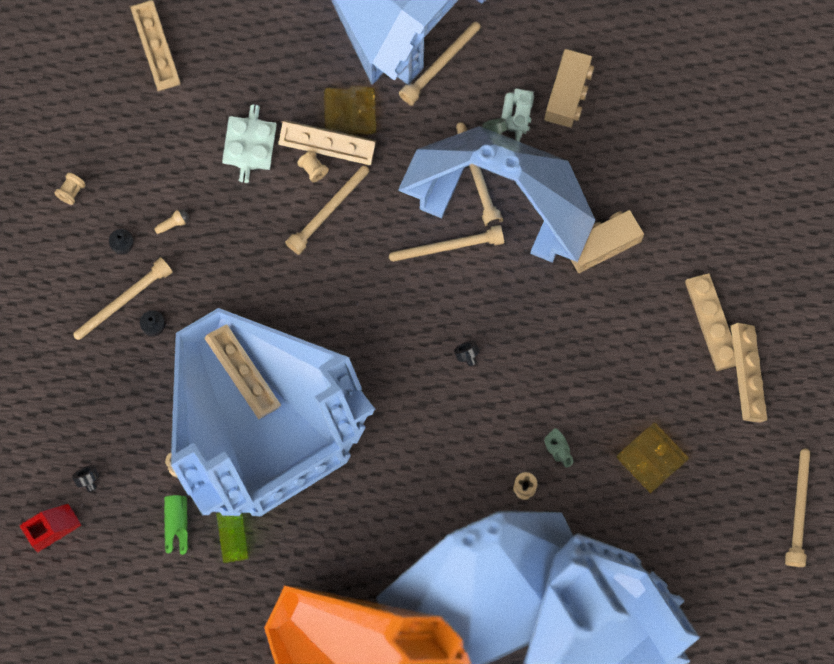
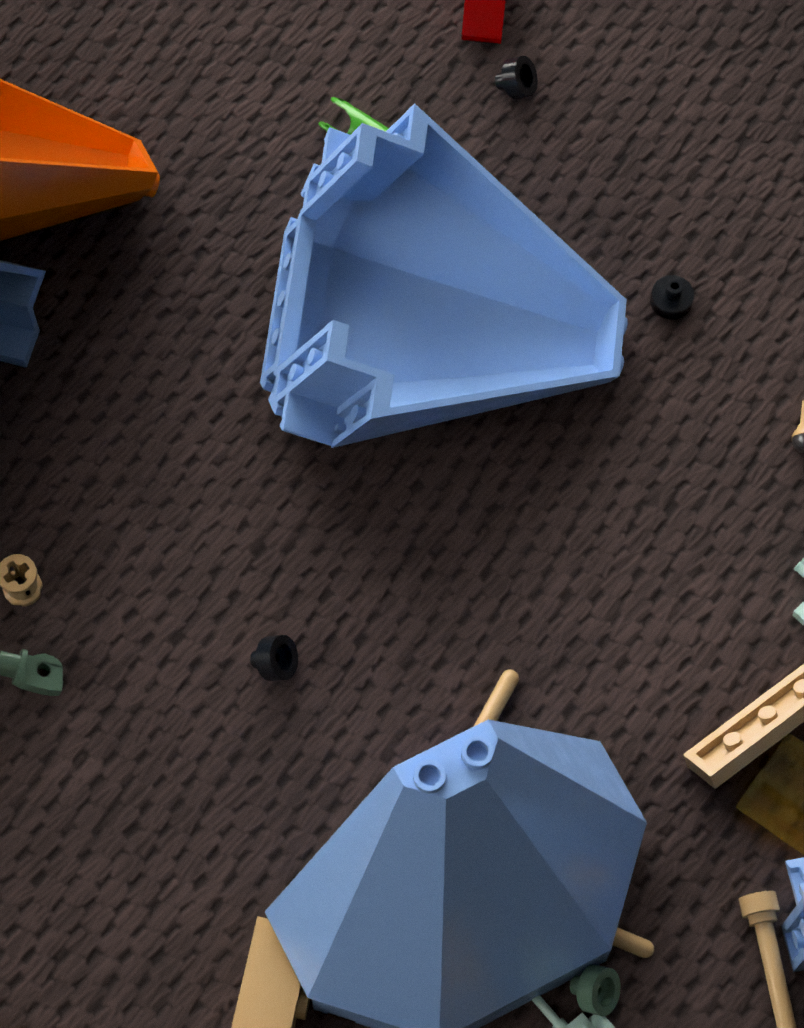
camera: 130 degrees right, 5 degrees down
(159, 270) = (743, 357): tan piece -> none
(232, 538) = (277, 183): clear neon green hinge -> none
(242, 371) = (499, 341): tan plate -> none
(299, 240) = (639, 562): tan piece -> none
(312, 166) = (746, 669): tan bush -> none

